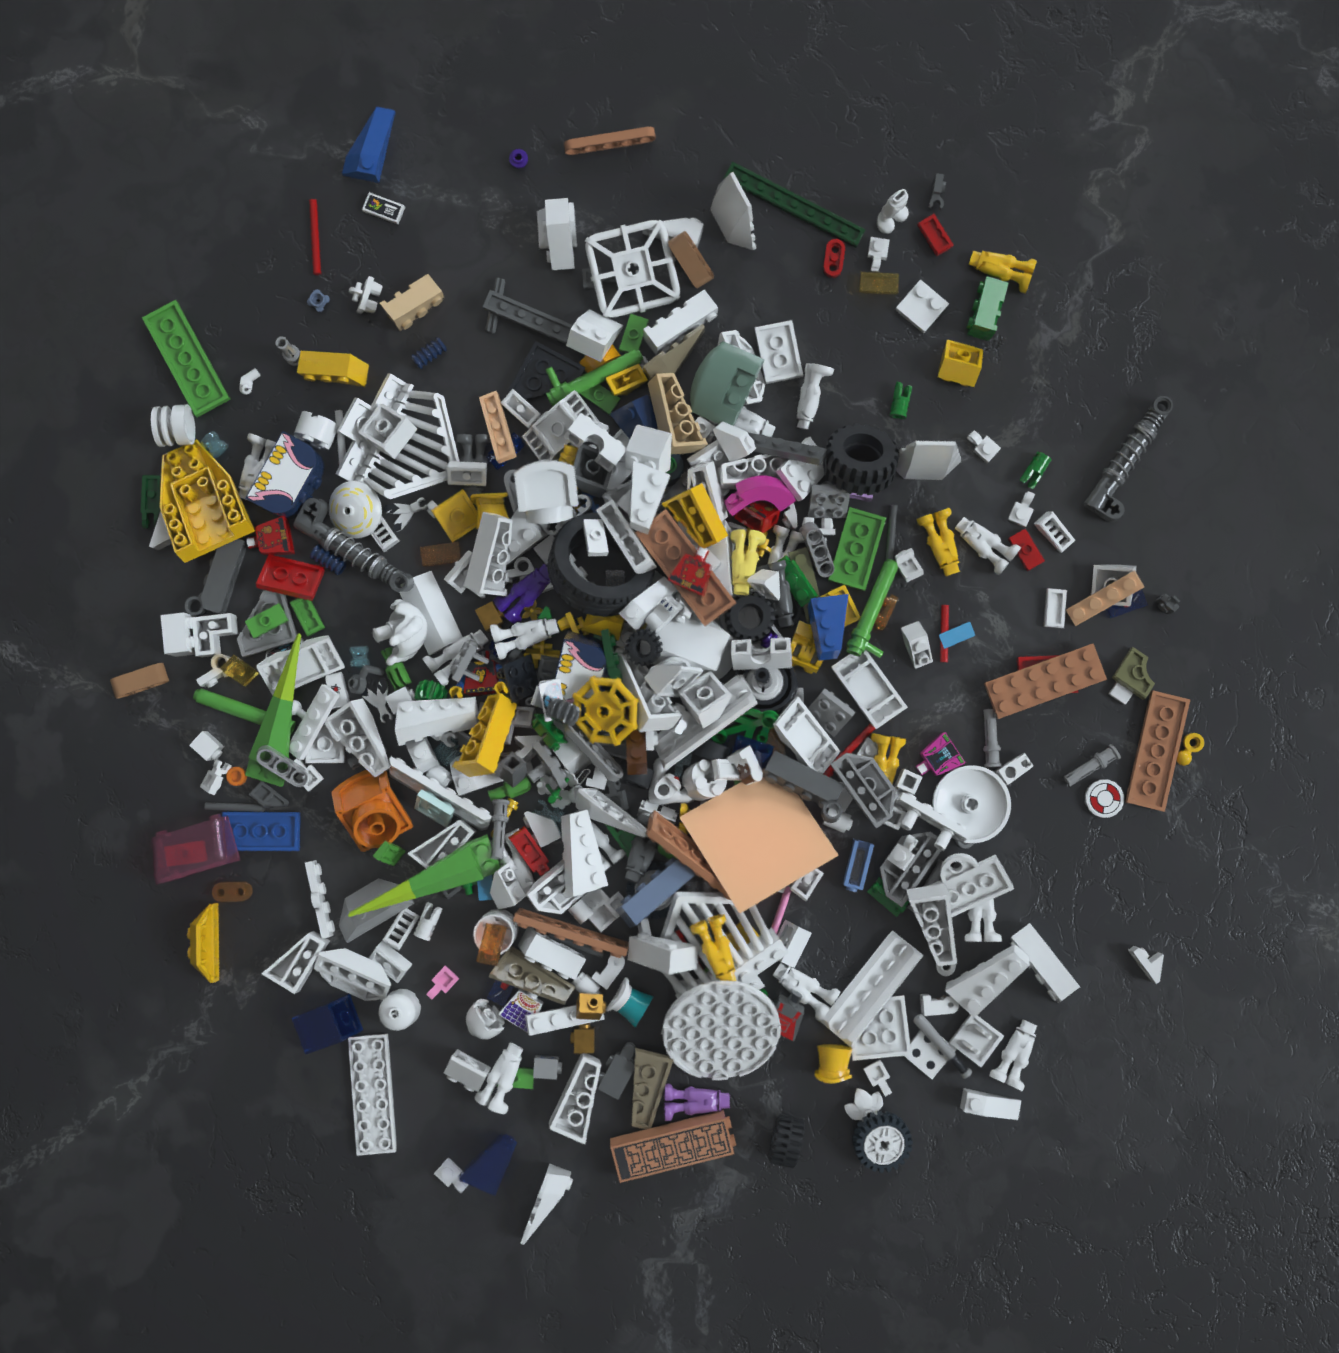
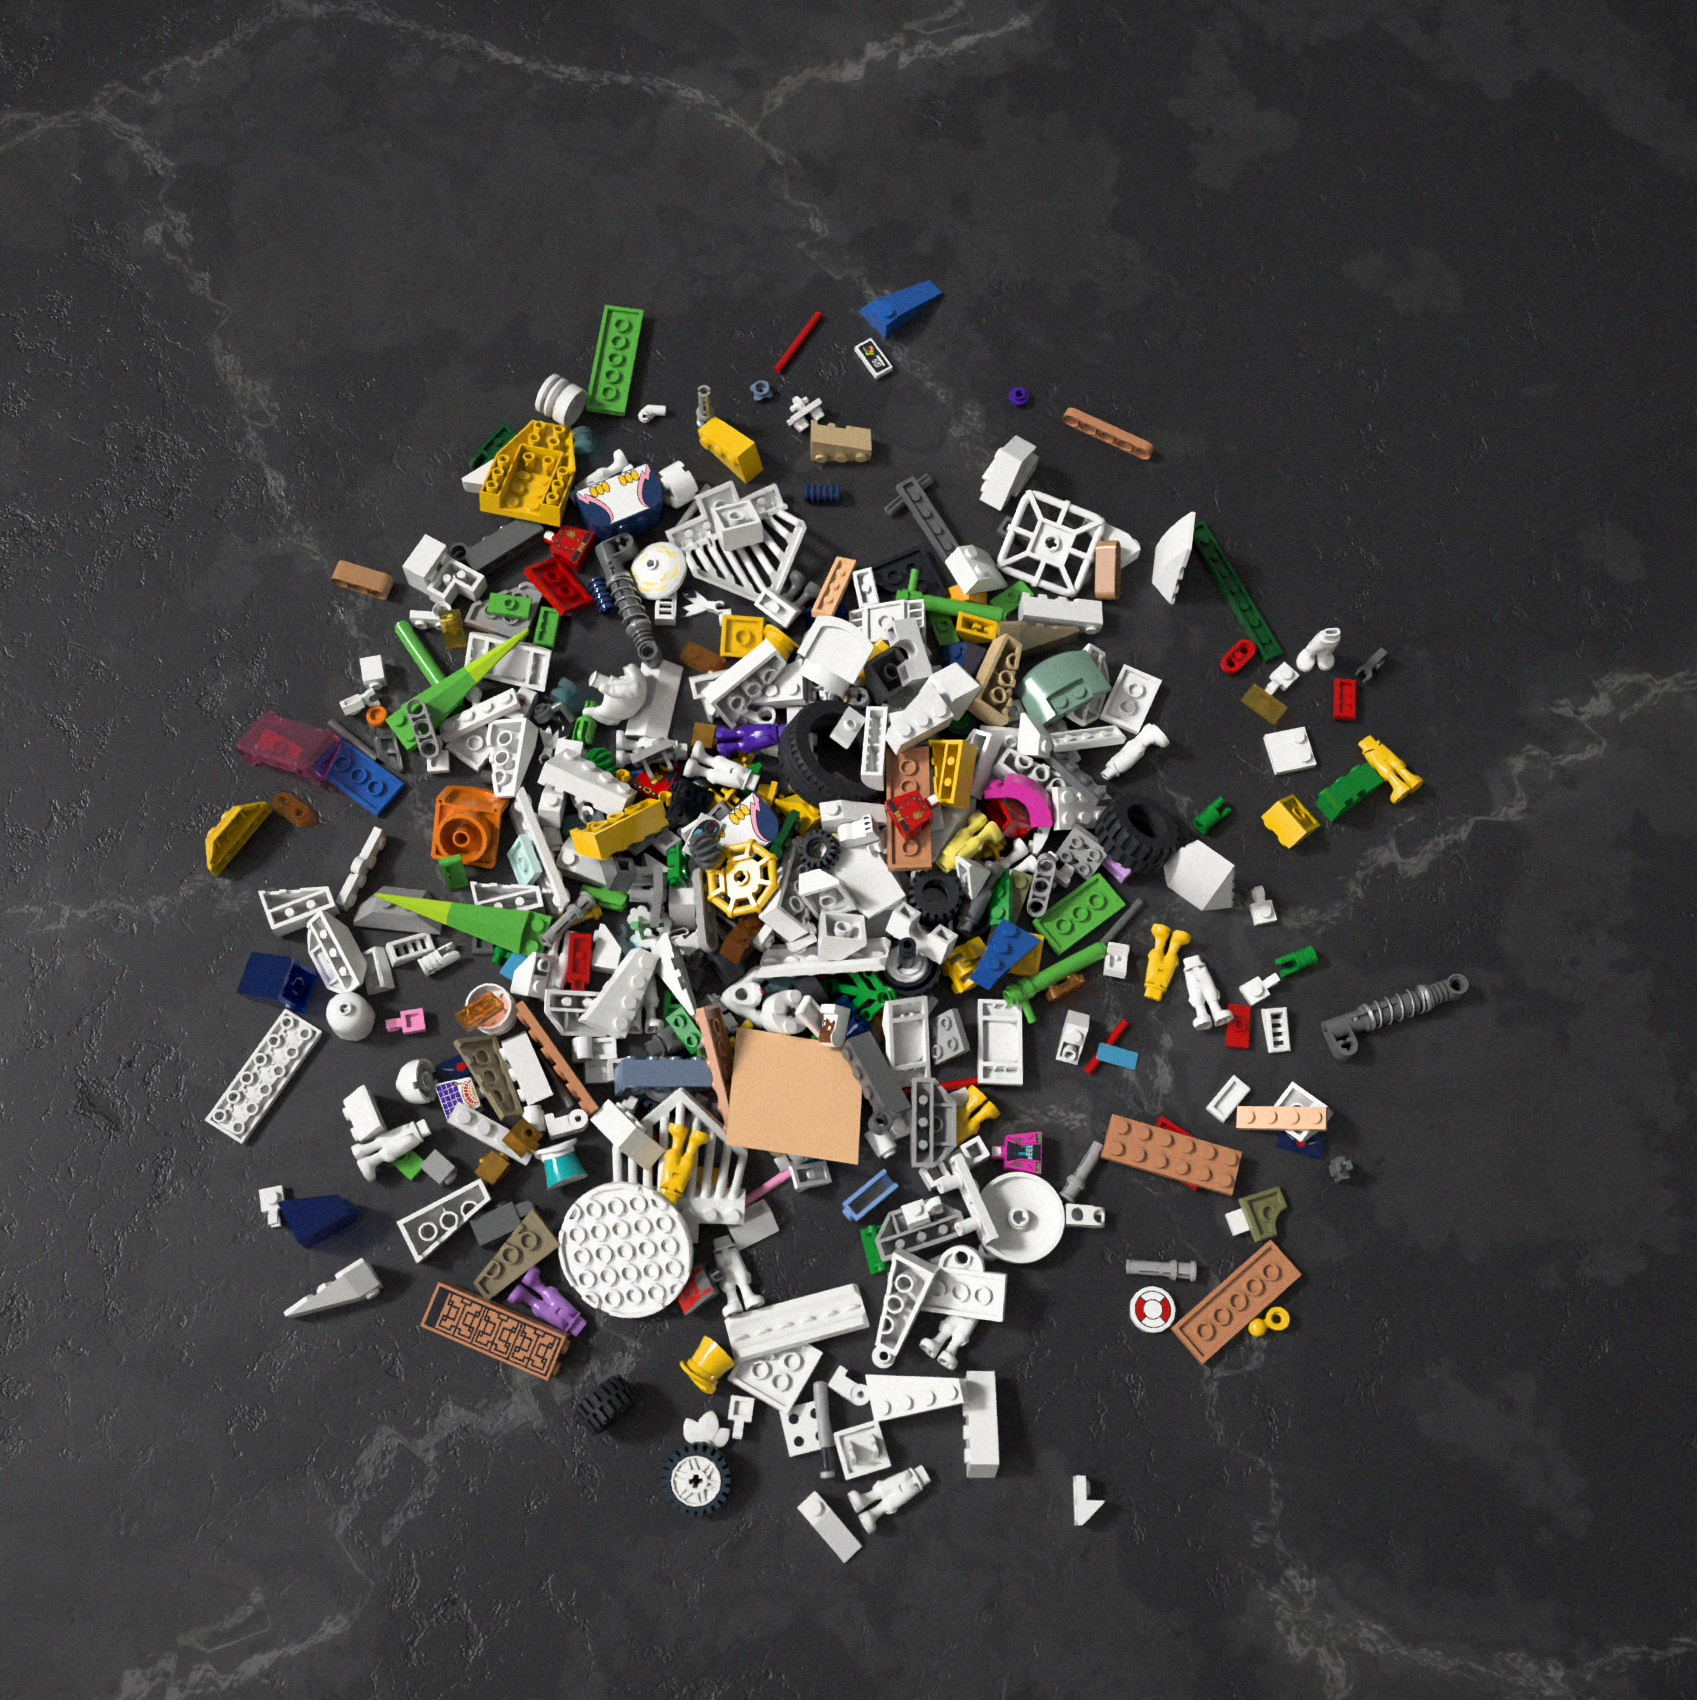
camera: 30 degrees right, 15 degrees down
(645, 847) = (685, 1029): none -> hinge
(770, 410) = (1086, 738): none -> white tile

